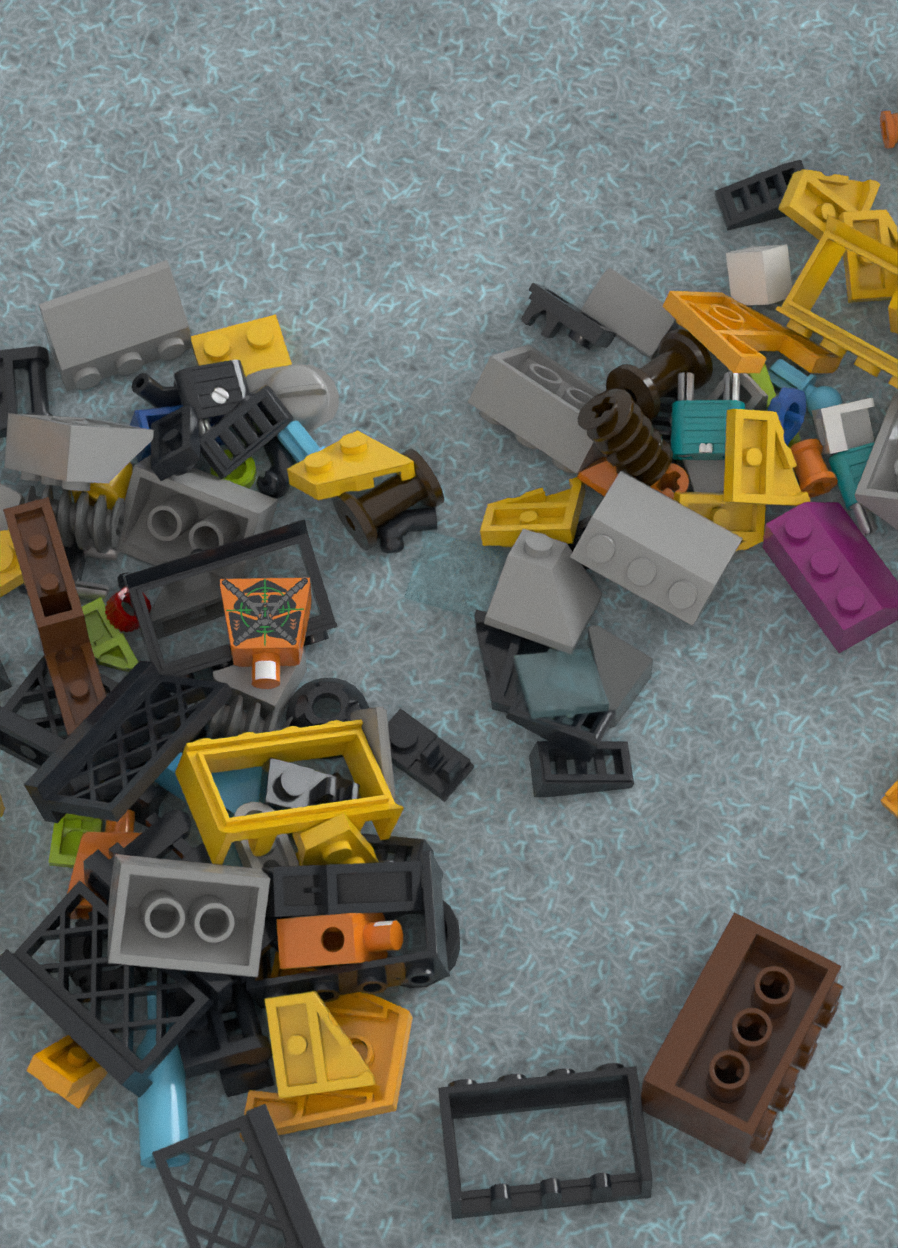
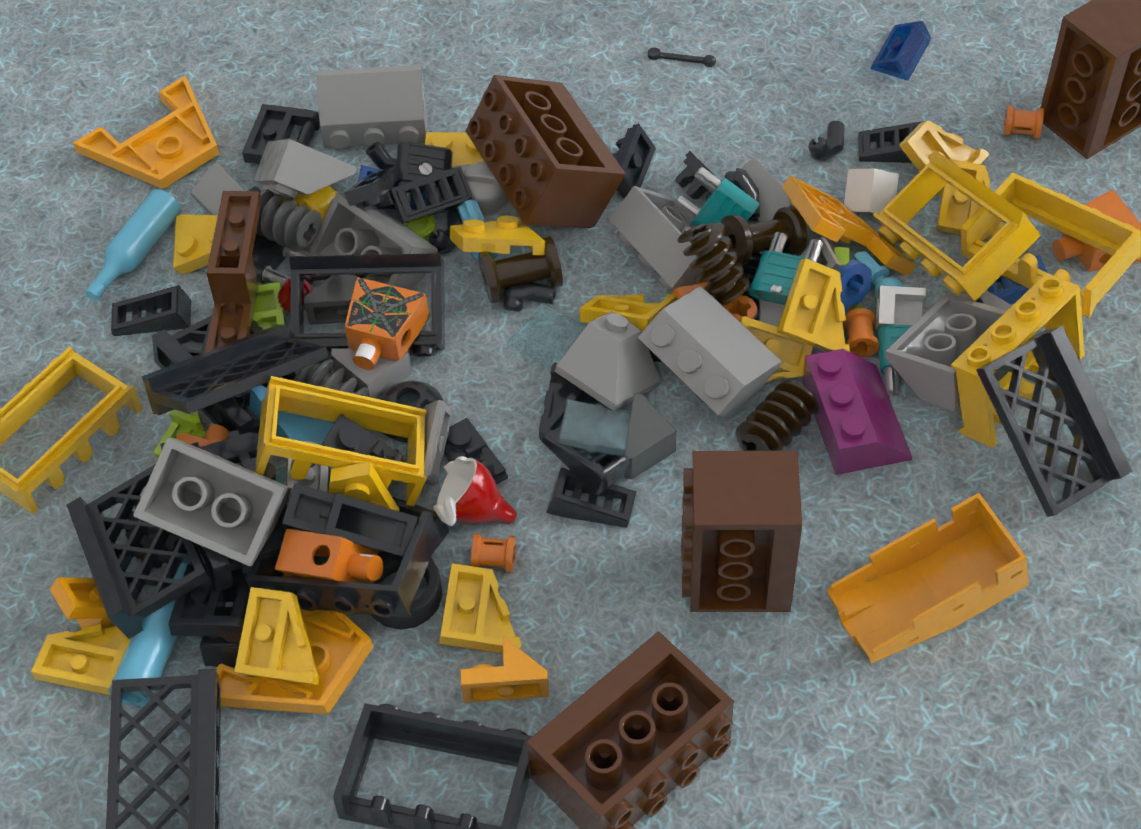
camera: 20 degrees right, 10 degrees down
(92, 1133) = (82, 658): none -> yellow wing
(362, 337) = (544, 152): none -> reddish brown brick
(427, 141) = (655, 53): none -> black hinge
(447, 806) = (471, 495): none -> hat
(460, 310) = (634, 157): none -> black plate
(500, 866) = (494, 552): none -> orange bush
(507, 942) = (475, 612): none -> yellow wing
(585, 1004) = (517, 679): none -> light orange slope
(597, 351) = (723, 201): none -> teal piece
(619, 316) = (745, 183): none -> black arm
(689, 219) = (832, 145): none -> black arm
(727, 57) = (902, 50): none -> clear blue slope
(756, 611) = (777, 418): none -> dark brown piece
(781, 770) = (740, 530): none -> reddish brown brick

